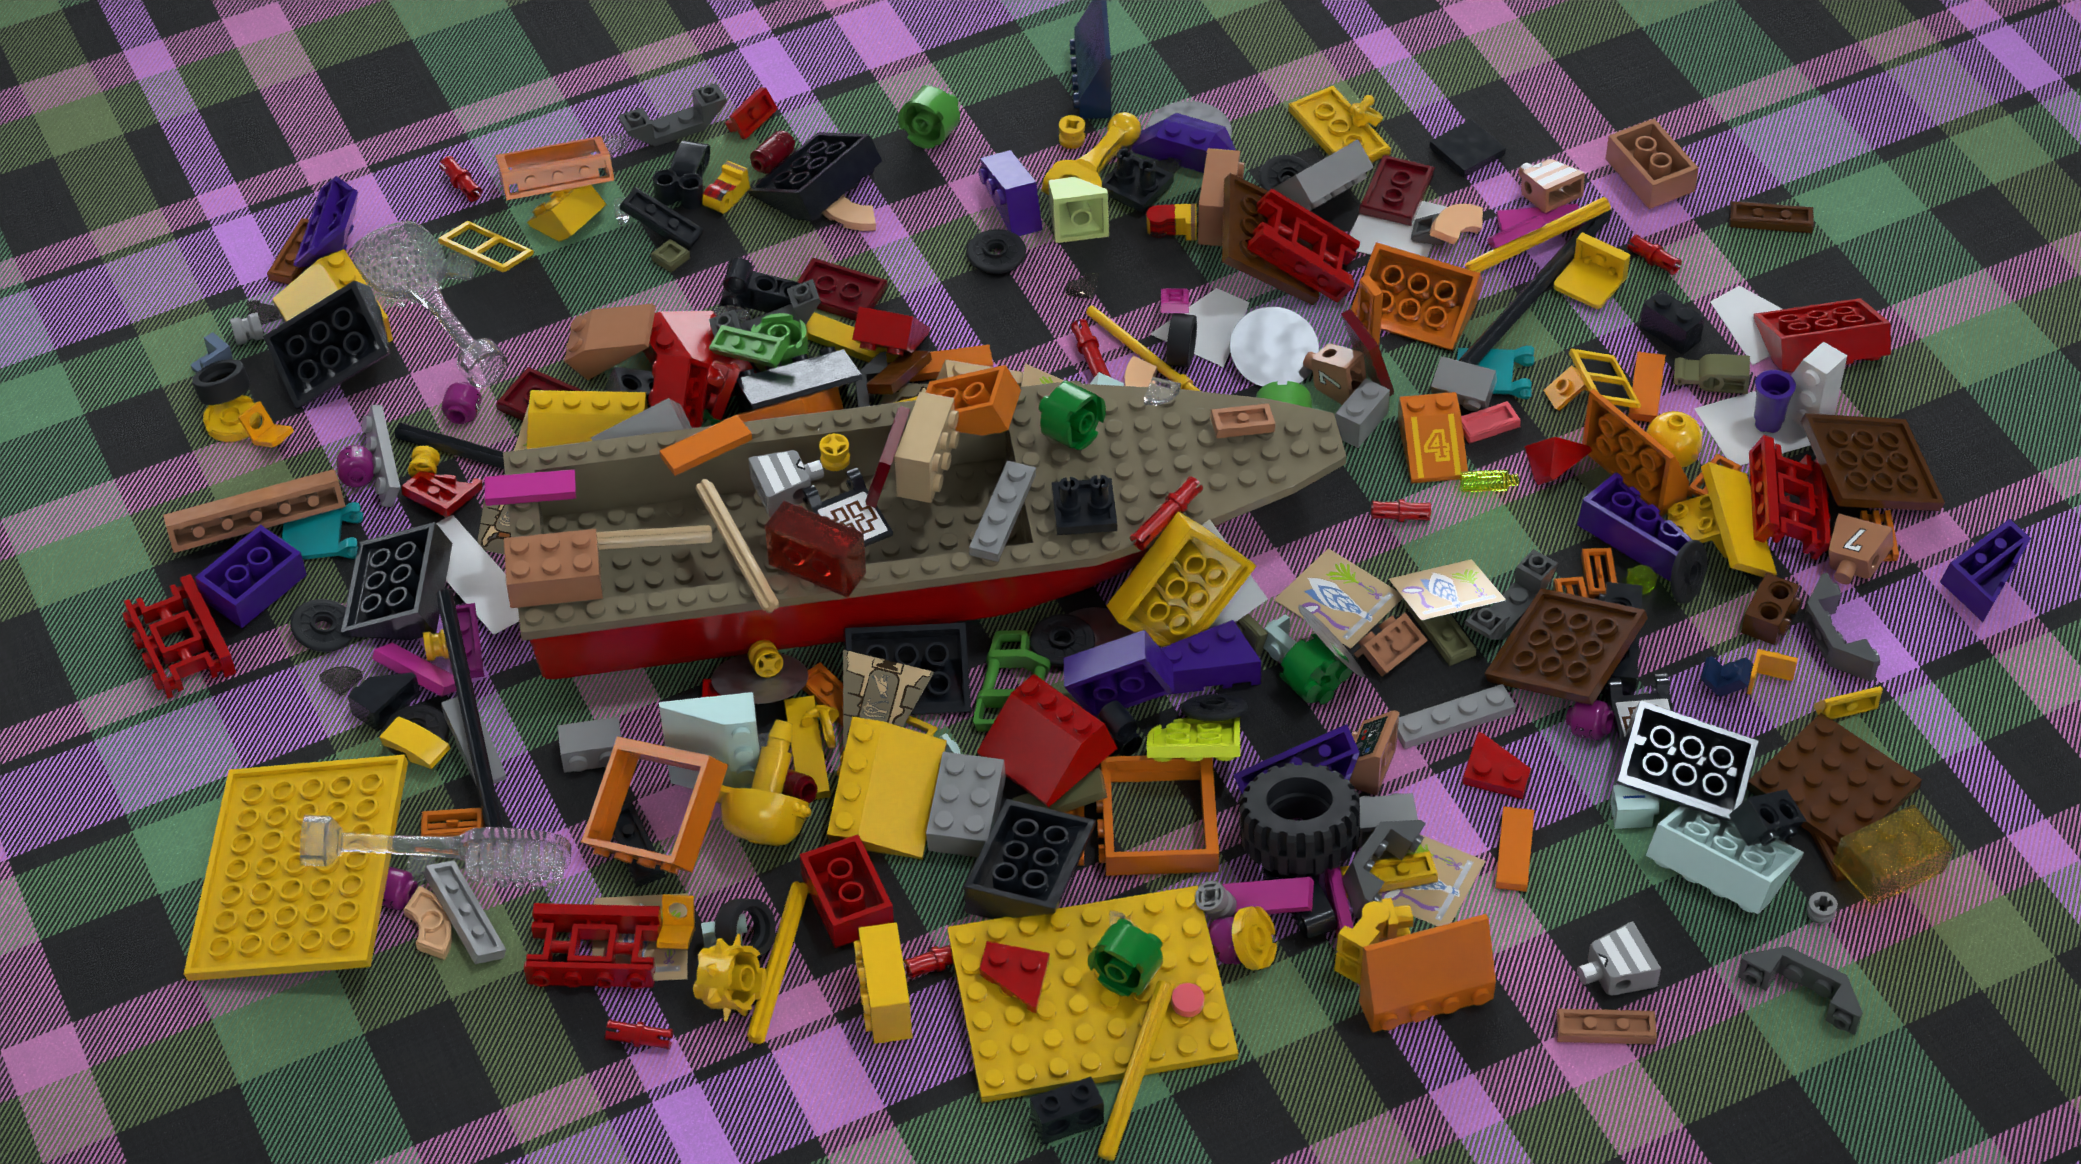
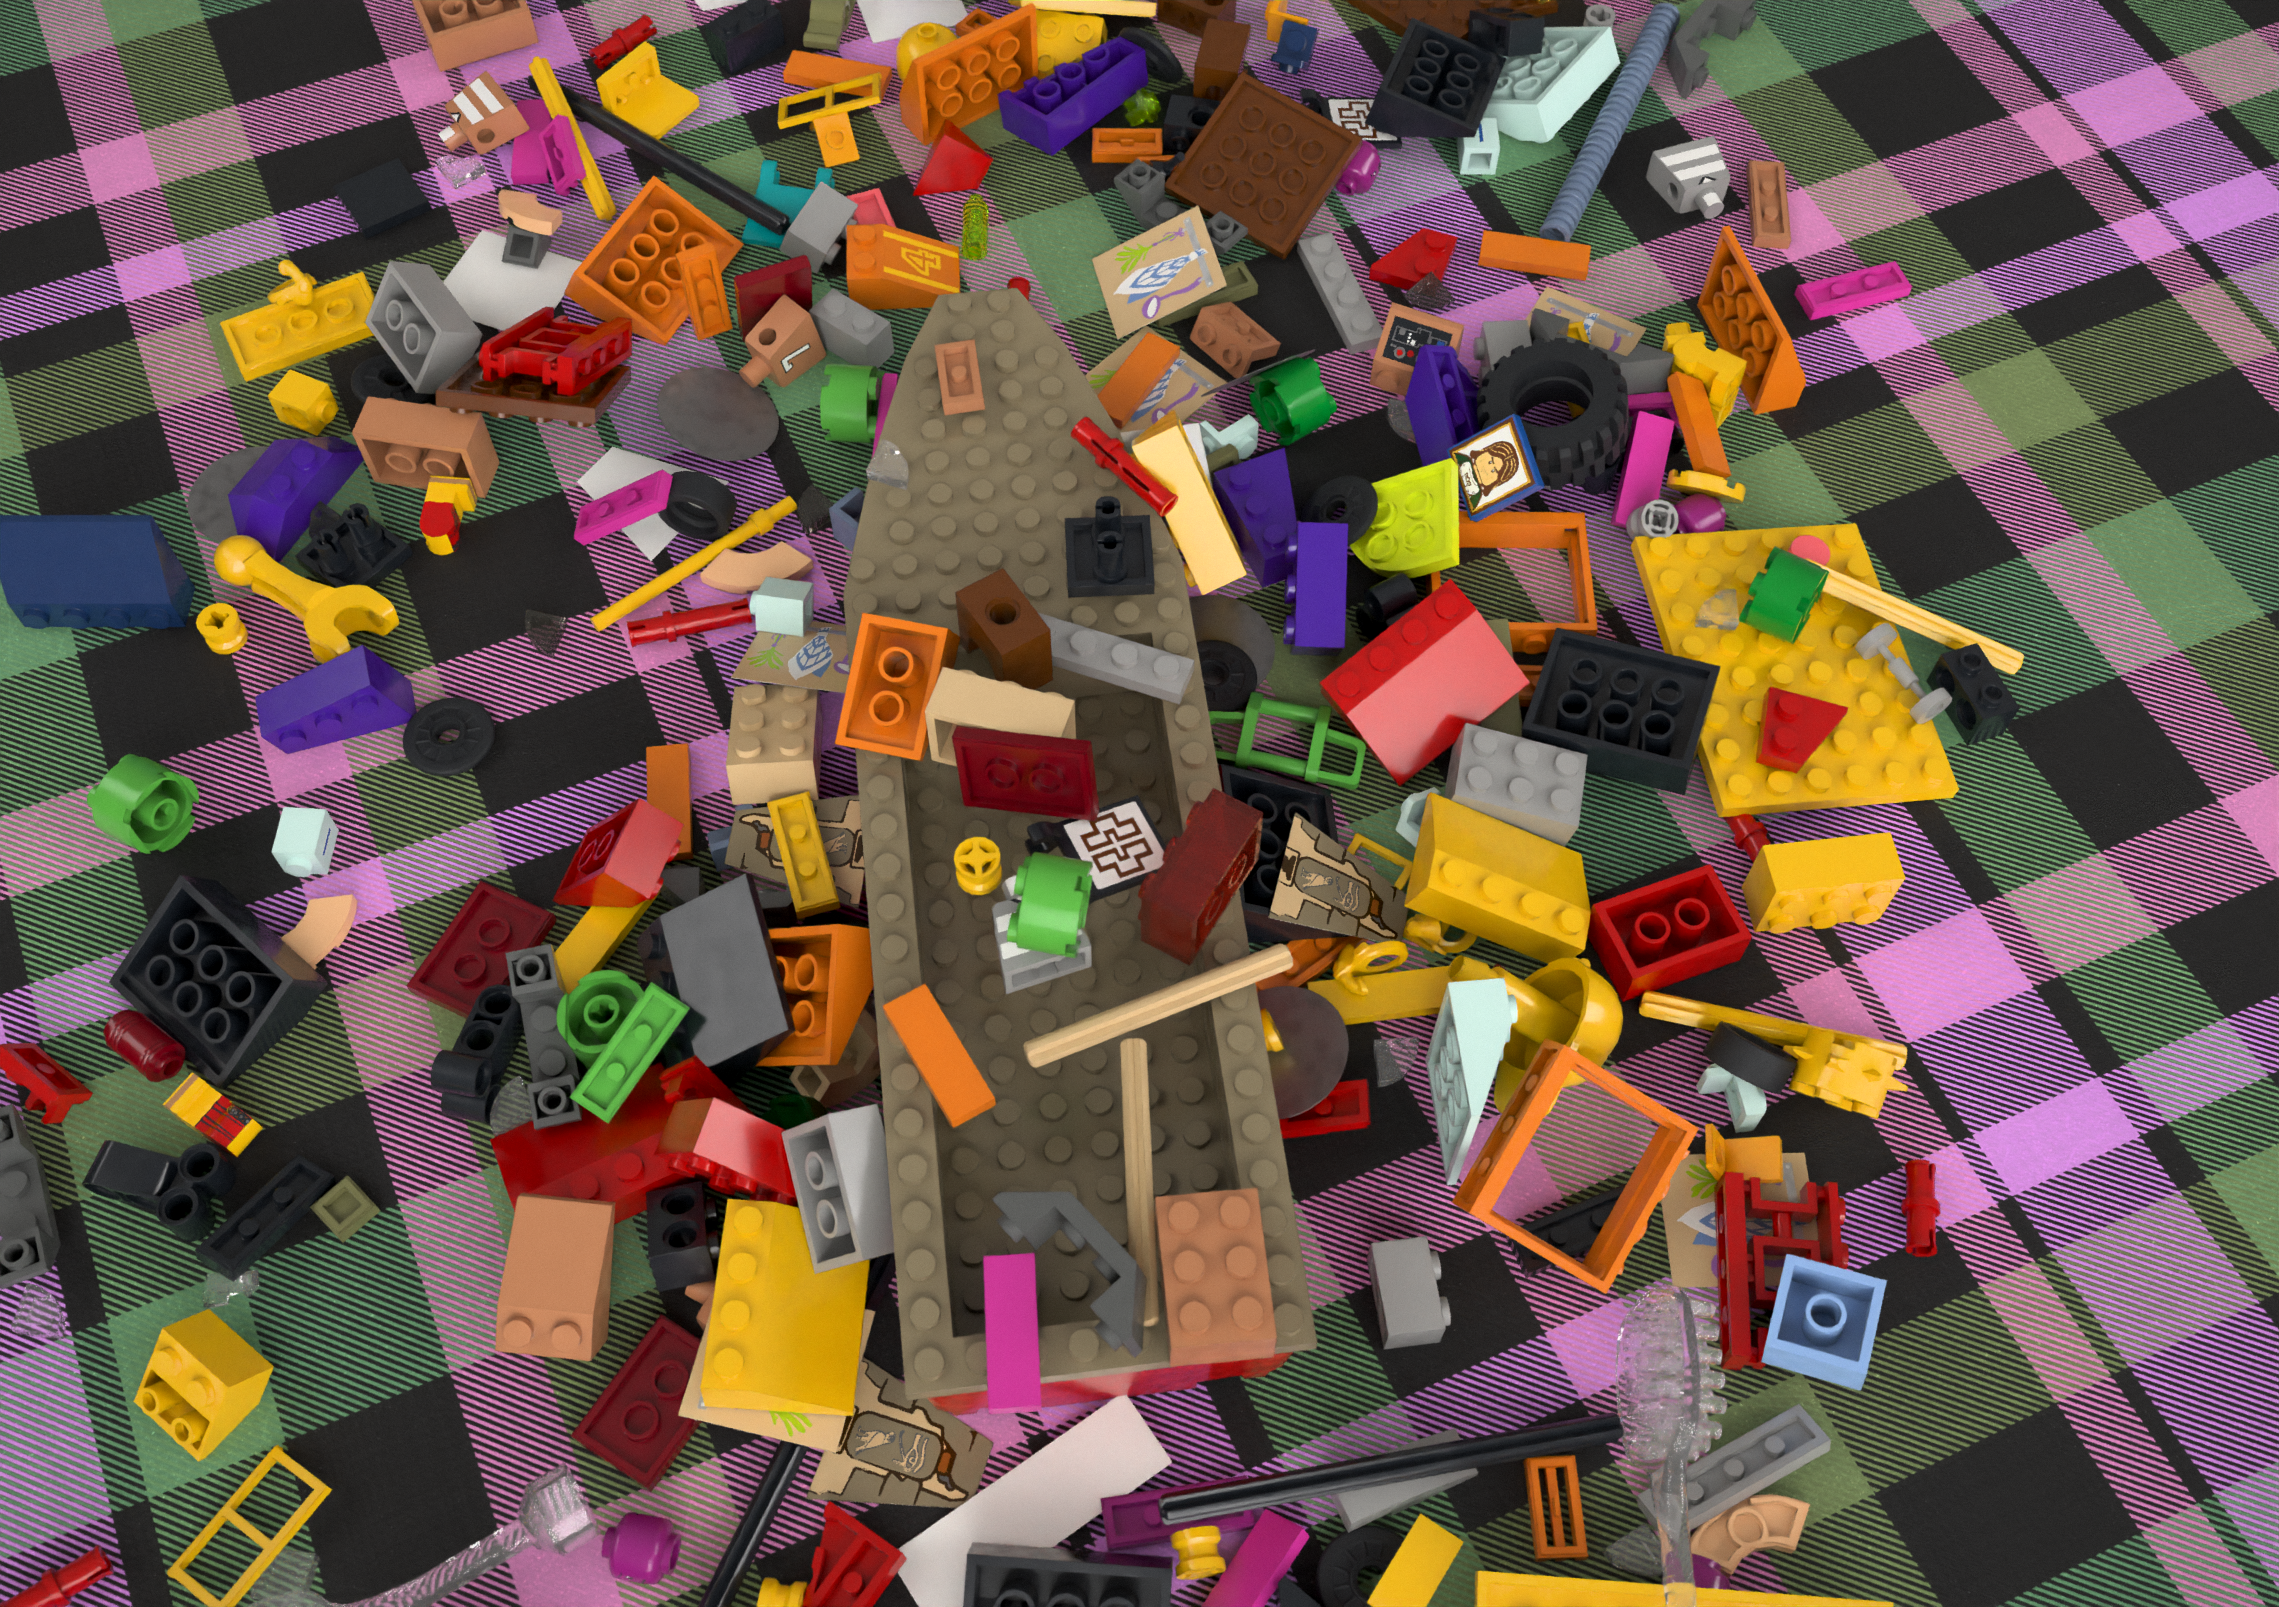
camera: 90 degrees left, 10 degrees up
(543, 935) = (1824, 1321): none -> light blue brick
(554, 167) = (162, 1393): orange window -> none
(567, 513) = (1041, 1215): none -> dark grey slope
(778, 459) = (1052, 904): none -> bright green brick
(899, 372) = (719, 848): reddish brown tile -> none
(910, 195) = (305, 841): none -> light aqua brick
(996, 438) = (1007, 629): none -> reddish brown piece
(1071, 415) = (950, 549): green brick -> none
(1078, 210) = (406, 615): yellowish green slope -> none
(1100, 1034) = (1877, 642): none -> light grey wheel
(1234, 774) = (1496, 468): none -> tile
(1262, 136) = (303, 402): none -> yellow brick
(1304, 924) = (1698, 425): none -> orange tile
(1341, 586) = (1137, 377): none -> orange tile
(1397, 190) = (464, 271): dark red tile -> none
(1456, 771) = (1429, 293): none -> clear smoke tile
(1503, 185) = (460, 171): none -> clear tile
(1508, 1082) = (1852, 290): none -> dark pink tile
(1559, 584) = (1167, 167): none -> black hand
(1675, 617) = (1220, 58): none -> reddish brown piece
(1680, 905) = (1610, 124): none -> sand blue piece

